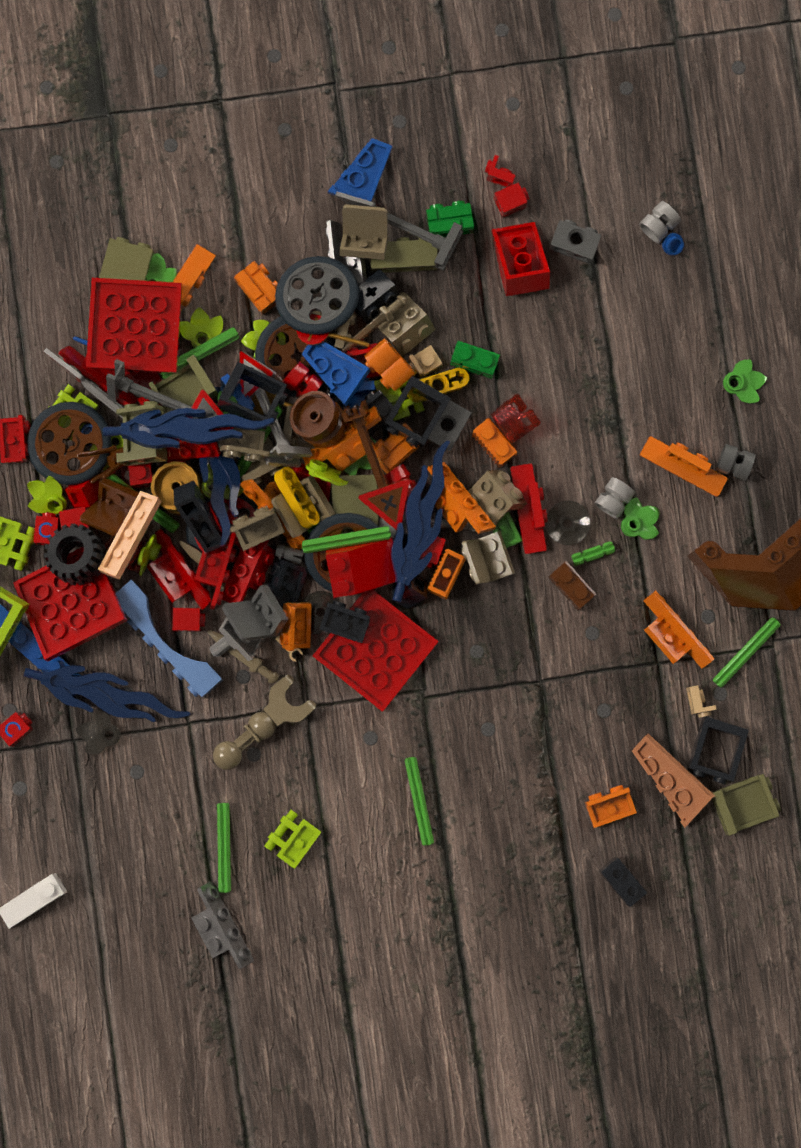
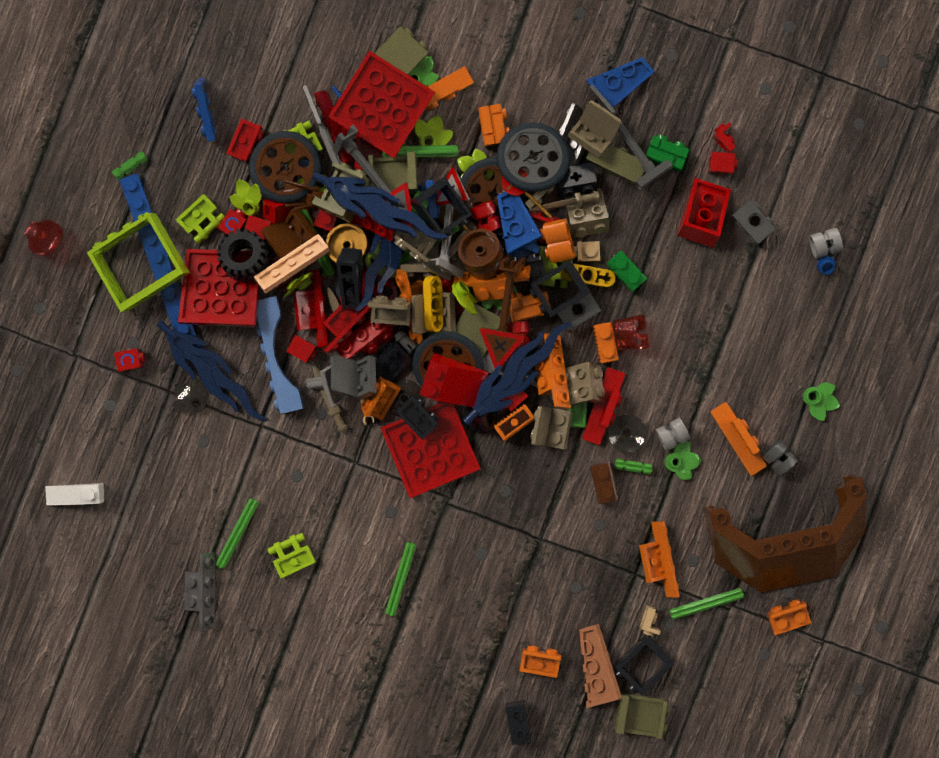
camera: 35 degrees right, 5 degrees up
(263, 724) = (315, 459): dark tan piece -> none
(346, 539) = (453, 356): bright green axle -> none

